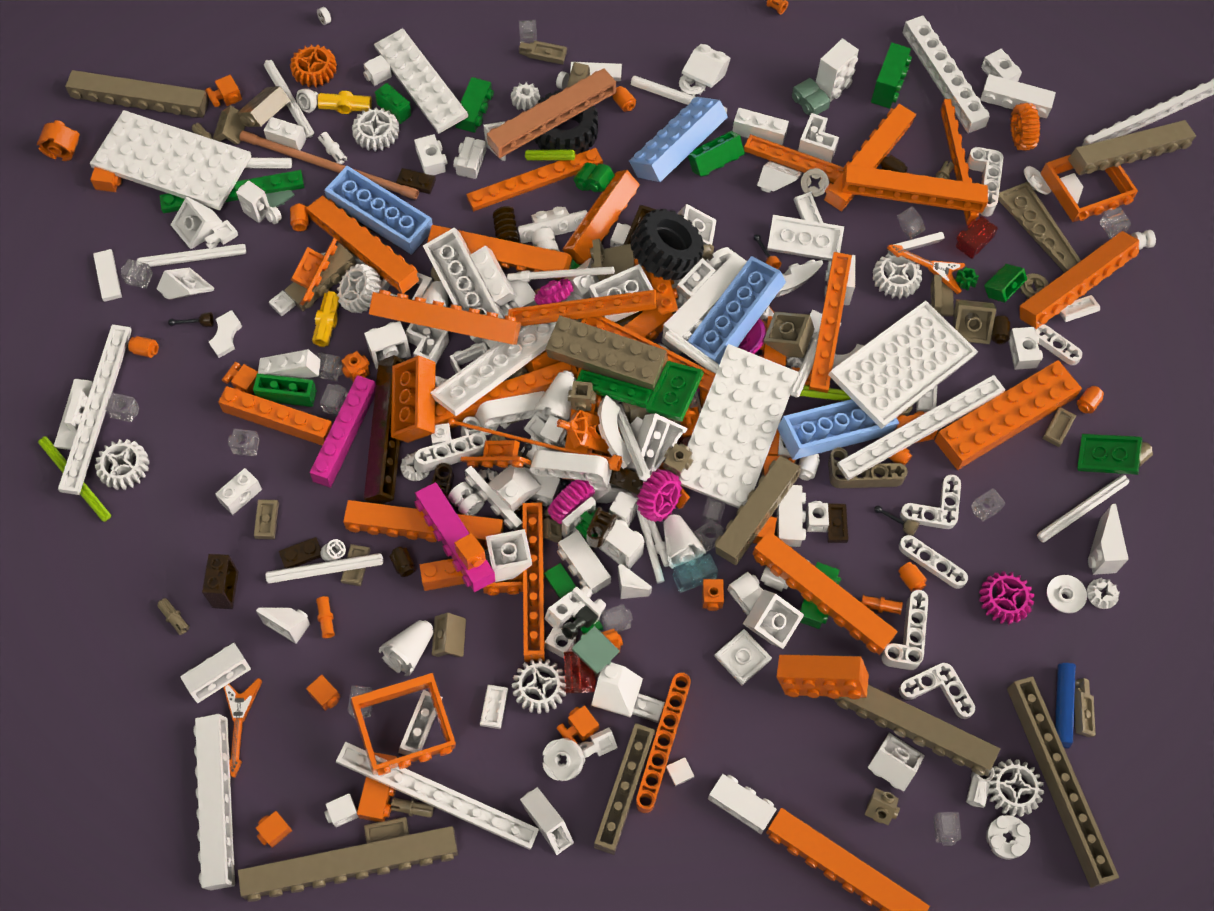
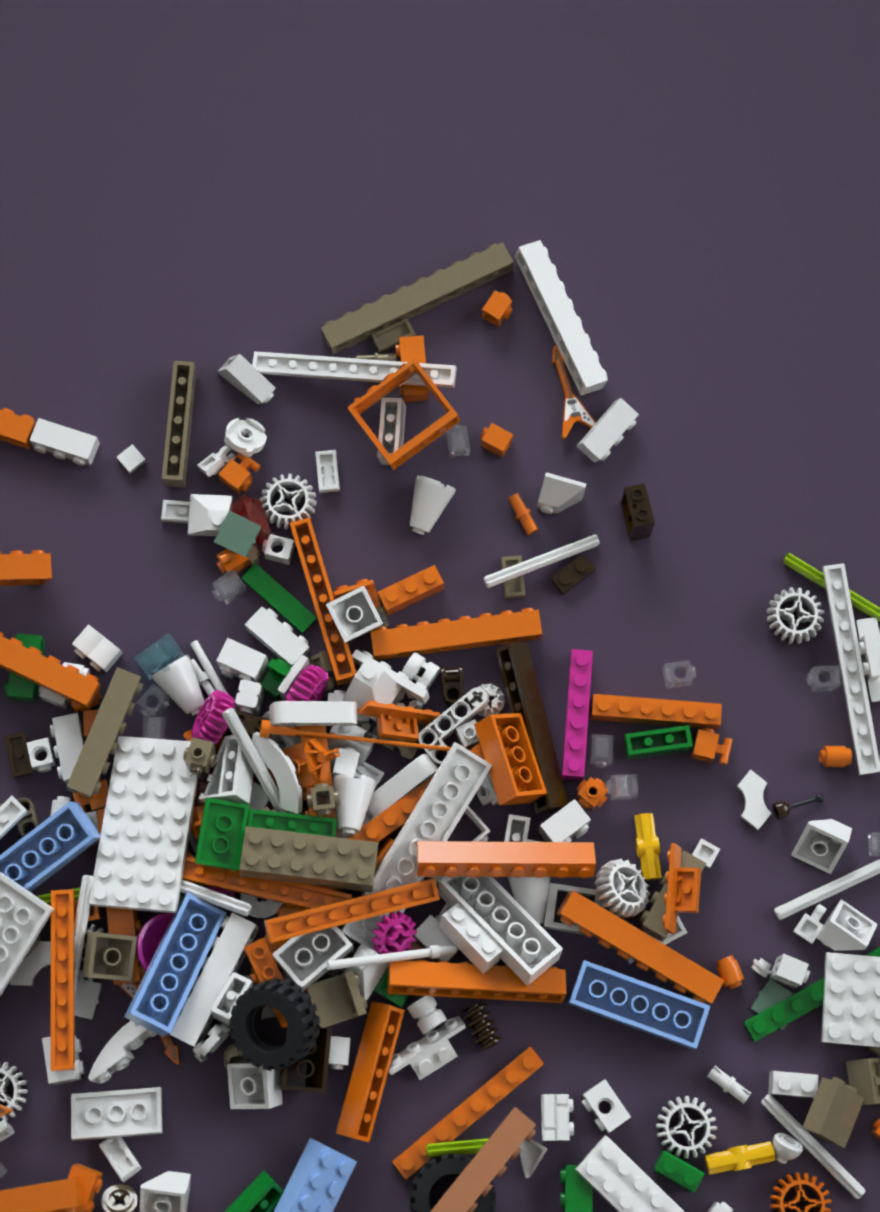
camera: 165 degrees right, 10 degrees up
(173, 616) = (673, 475): dark tan axle -> none
(238, 491) = (661, 617): white brick -> none
(256, 140) = (621, 1049): nougat piece -> none
(266, 519) = (621, 598): dark tan plate -> none
(269, 163) = (796, 1042): white axle -> none
(295, 364) = (662, 766): white brick -> none
(328, 552) = (543, 582): white wheel -> none
(341, 810) = (440, 339): white brick -> none
(402, 561) = (465, 589): dark brown brick -> none
(416, 180) = (612, 1068): dark brown plate -> none
(448, 635) = (393, 528): dark tan panel -> none
(450, 529) = (415, 615): dark pink brick -> none
(470, 551) = (388, 588): orange brick -> none
(577, 605) = (268, 582): white hips -> none
(593, 177) = (394, 1125): green brick -> none
(601, 524) = (263, 660): dark brown piece -> none
(631, 585) = (221, 625): white slope -> none
(659, 751) = (152, 489): orange beam -> none
(712, 594) = (135, 638): orange brick -> none
(743, 657) = (92, 584): white plate -> none
(771, 260) = (151, 1071): hinge -> none
(773, 619) = (66, 620): white brick -> none

